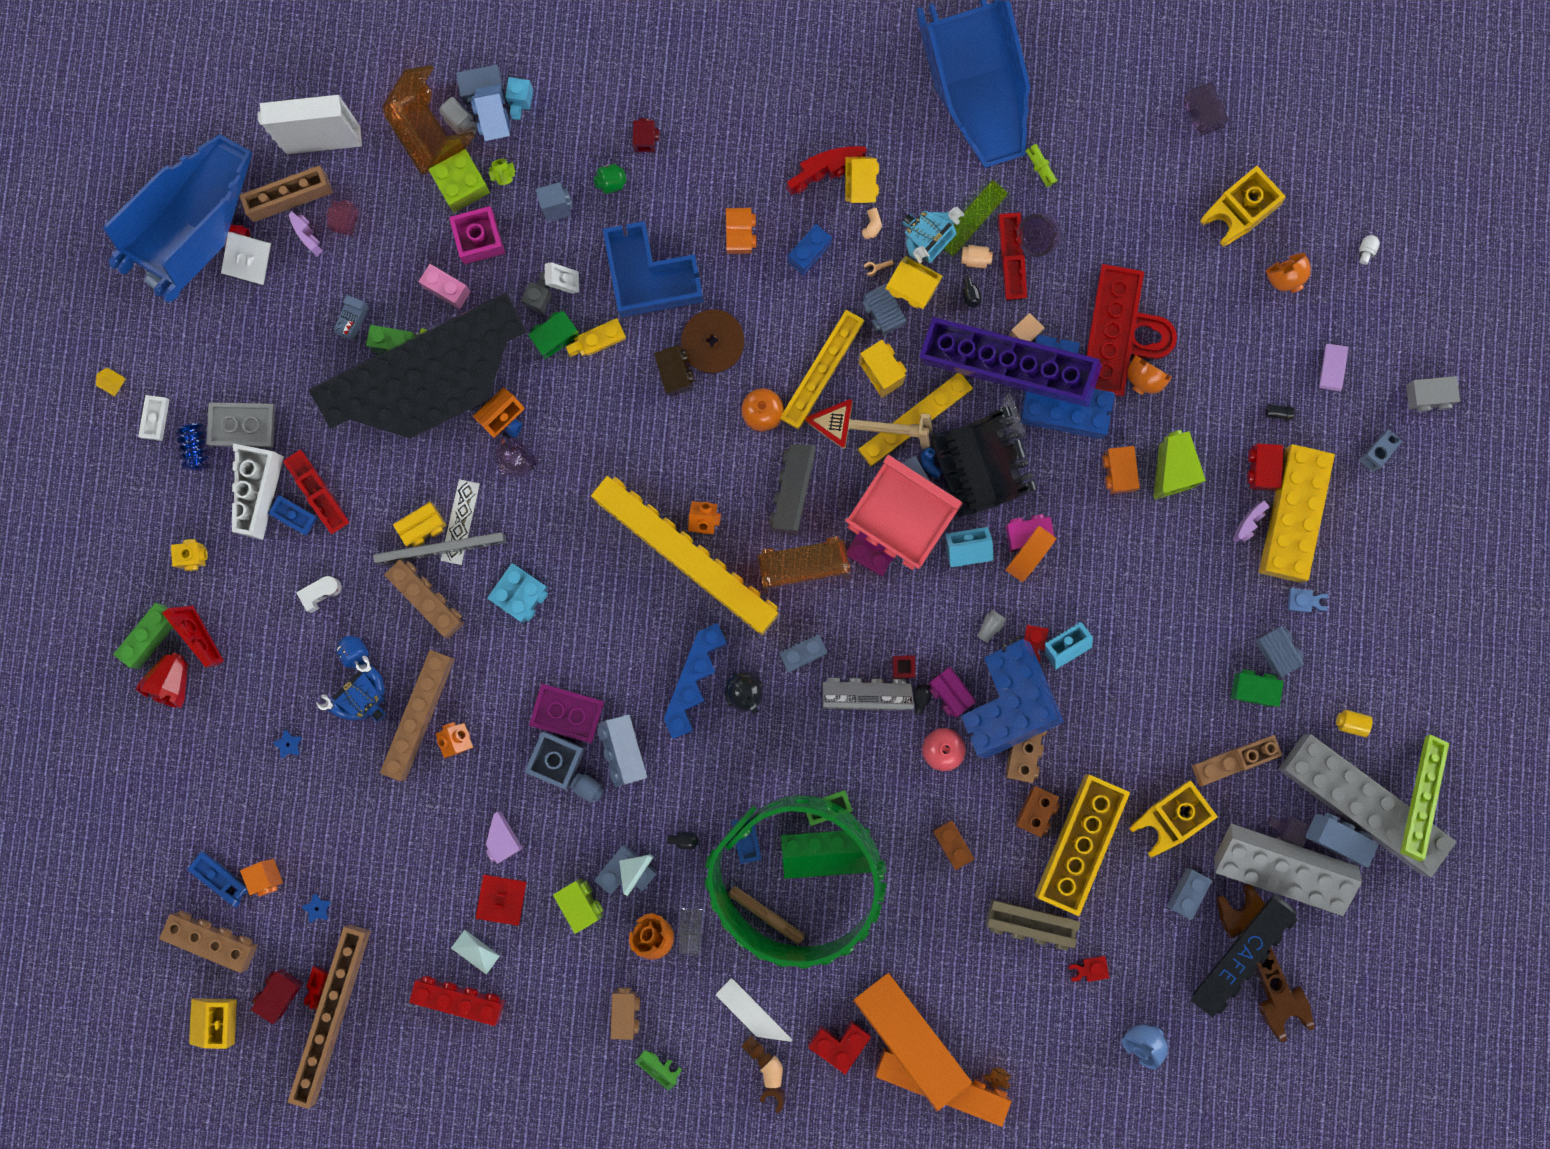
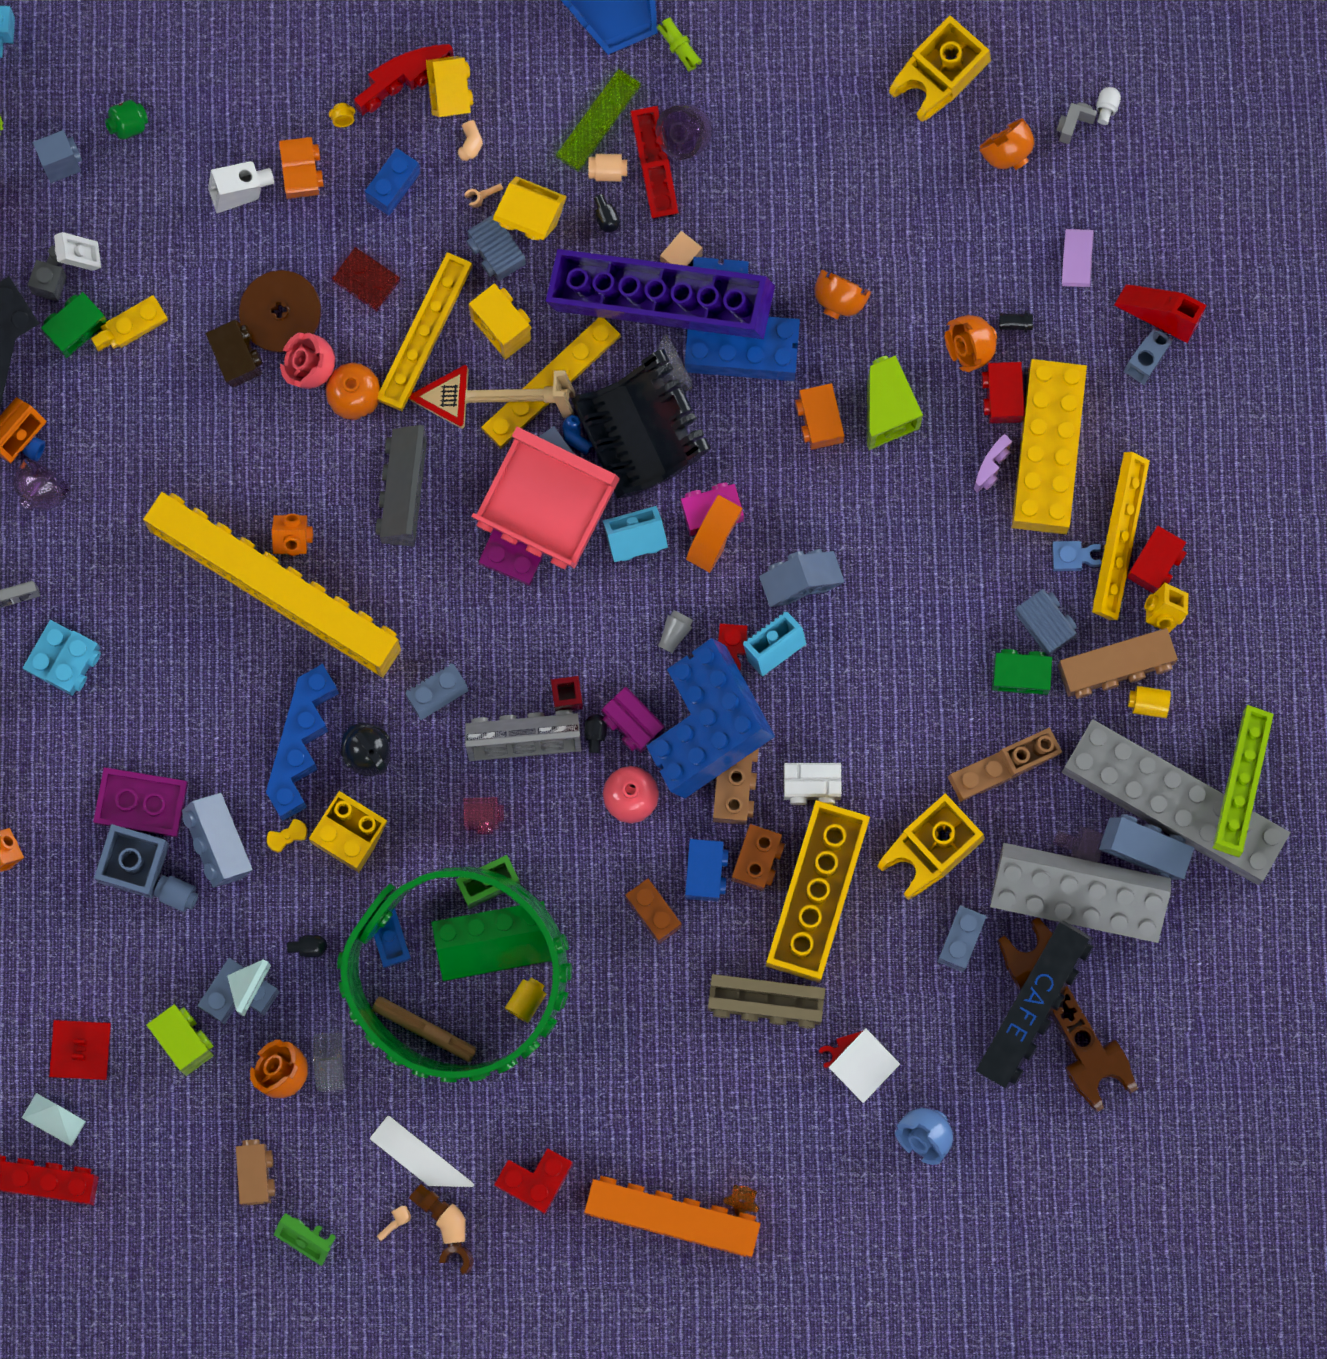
camera: 10 degrees left, 5 degrees down
(501, 839) = (72, 972): lavender slope -> none
(644, 284) = (187, 248): blue piece -> none
(645, 135) = (165, 60): dark red brick -> none
(669, 754) = (278, 840): none -> yellow piece
(690, 239) = (237, 185): none -> white torso
(724, 755) = (348, 831): none -> yellow slope
(730, 383) = (307, 361): none -> coral cylinder
(733, 1058) = (401, 1217): none -> light nougat hand
(776, 193) = (342, 115): none -> yellow plate
(781, 323) = (366, 279): none -> clear red plate
(803, 563) = (424, 575): clear orange windscreen -> none
(829, 753) = (482, 814): none -> clear pink brick
(847, 902) = (526, 999): none -> yellow brick
(912, 1042) = (626, 1163): orange tile -> none
(930, 233) = (544, 144): medium azure torso -> none
(996, 816) = (704, 870): none -> blue brick
(1085, 756) = (812, 782): none -> white brick
(1094, 595) = (801, 576): none -> sand blue brick
(1103, 983) = (864, 1065): none -> white sticker
(1114, 326) = (794, 235): red plate -> none
(1244, 424) = (970, 341): none -> orange cylinder
(1333, 690) = (1117, 662): none -> medium nougat brick
(1338, 259) = (1076, 112): none -> light grey bracket
(1344, 590) = (1120, 536): none -> yellow plate
(1371, 612) = (1157, 559): none -> red brick
(1376, 651) = (1166, 607): none -> yellow brick
(1399, 416) = (1164, 309): none -> red slope
(1433, 393) = (1208, 276): light grey brick -> none

